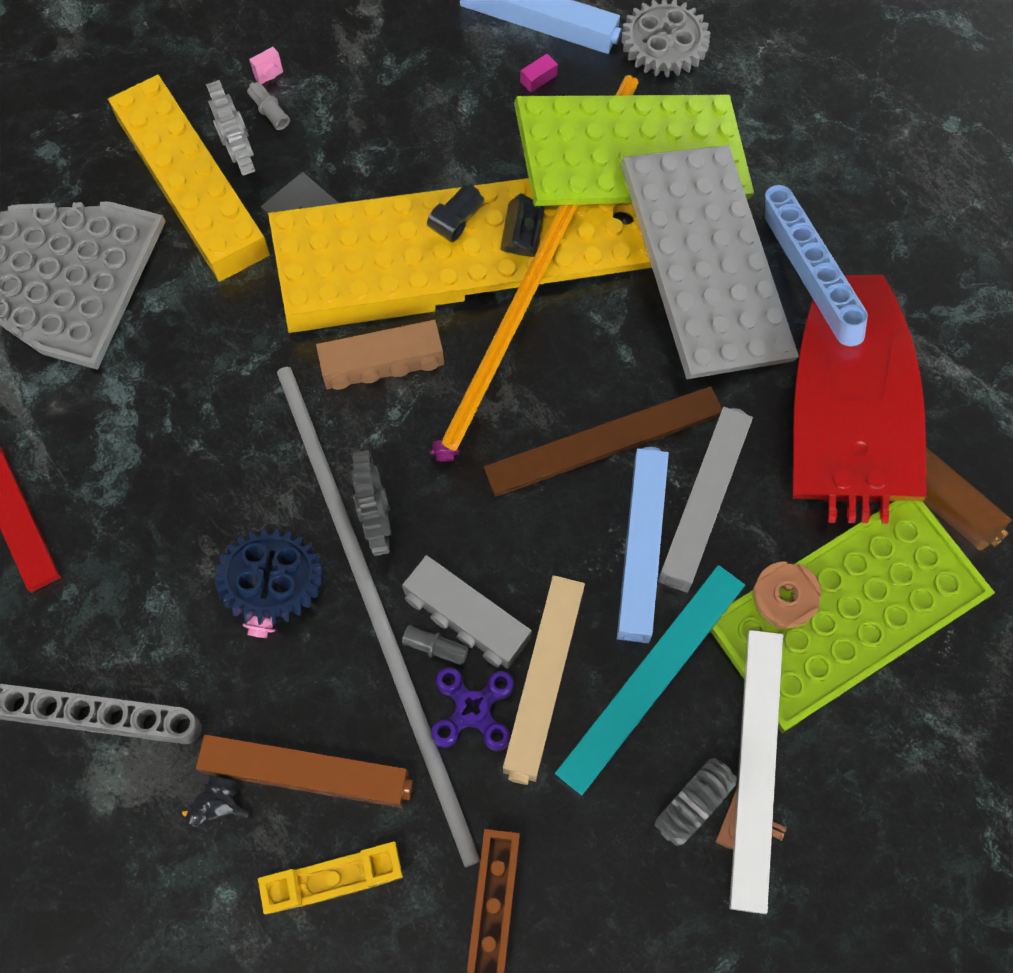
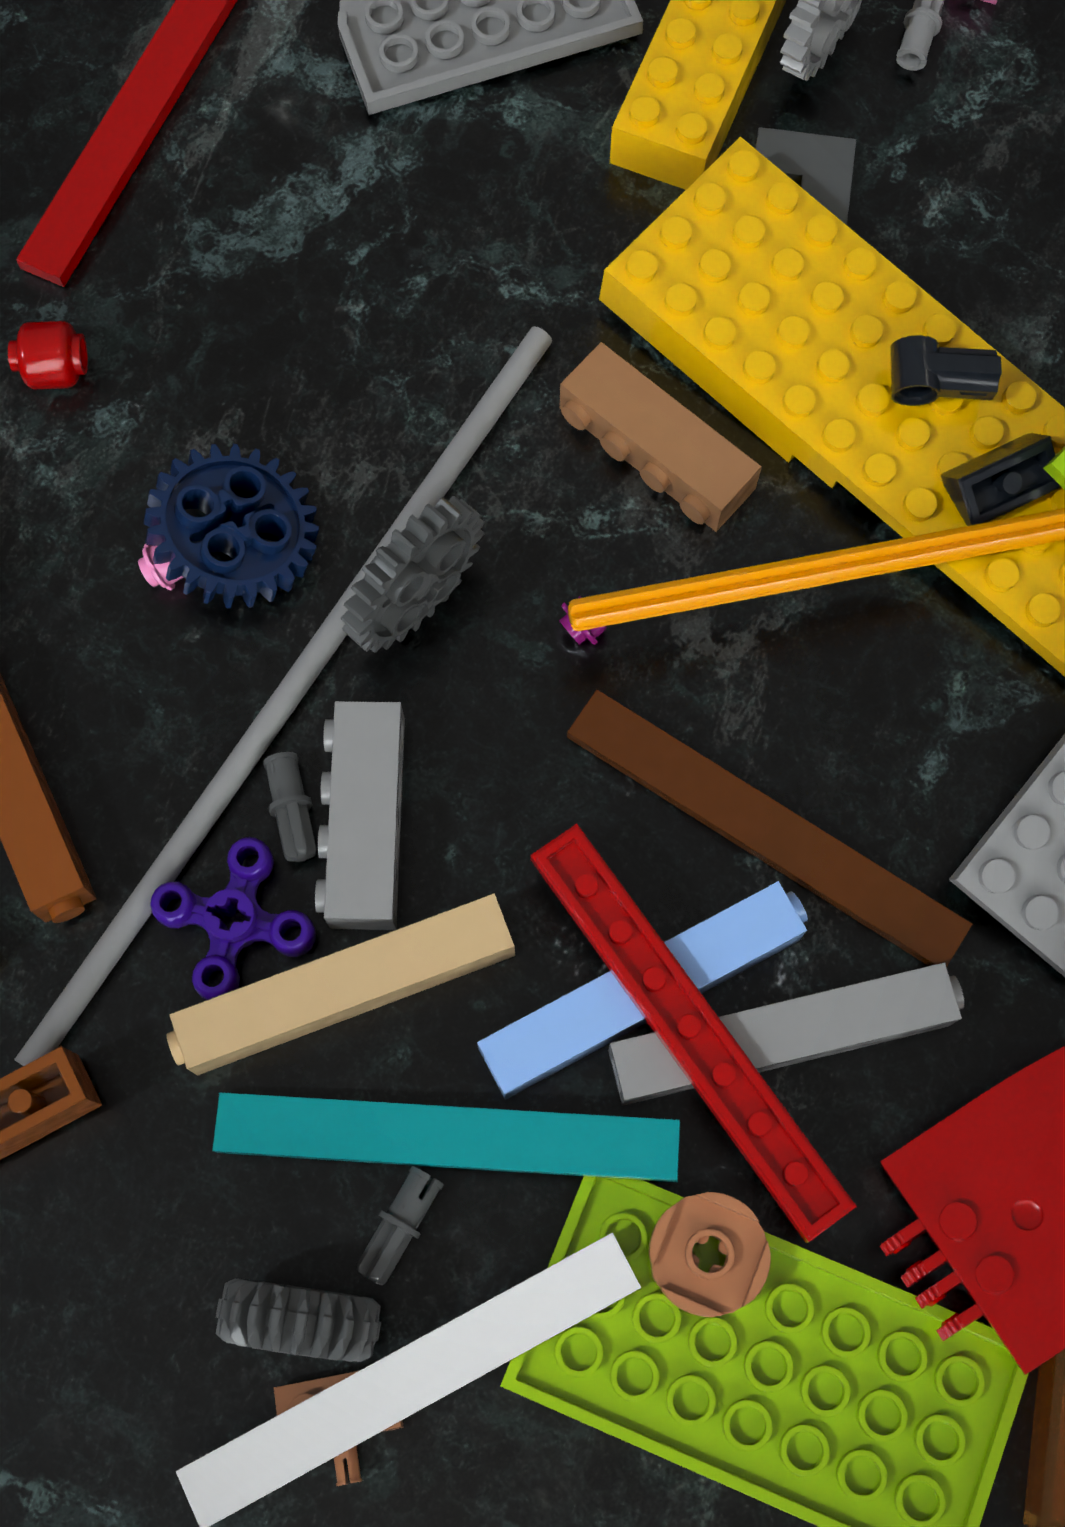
camera: 55 degrees right, 5 degrees up
(97, 607) = (48, 354): none -> red head
(677, 729) = (398, 1226): none -> dark grey axle
(679, 531) = (693, 1034): none -> red tile

